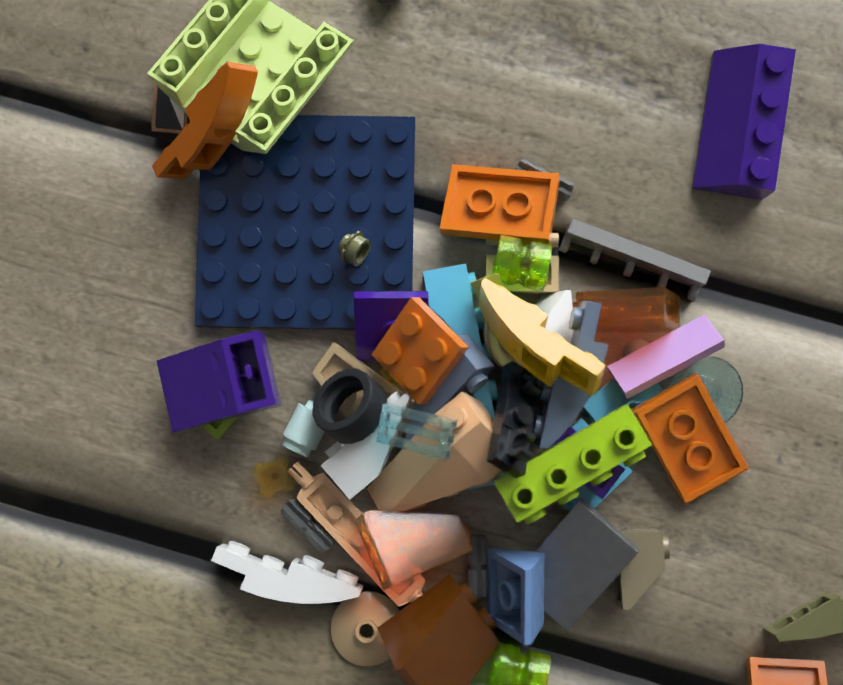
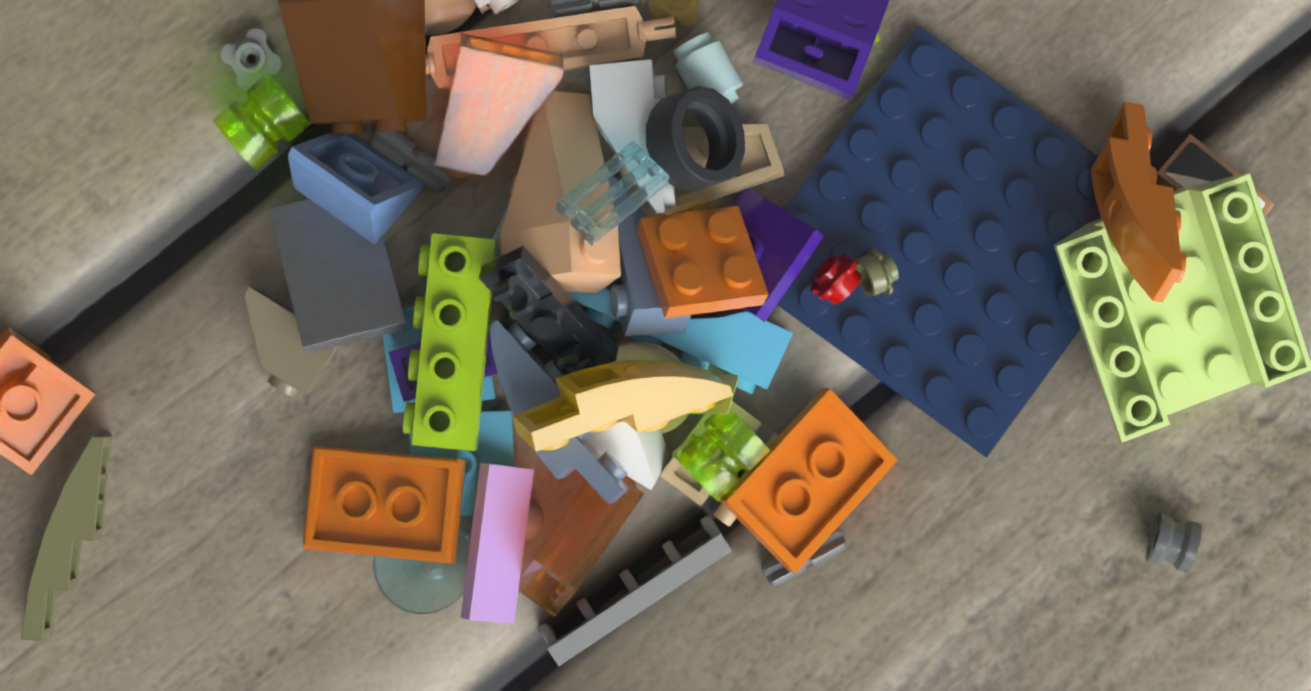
camera: 120 degrees right, 5 degrees up
(373, 268) = (836, 279): none -> red plate

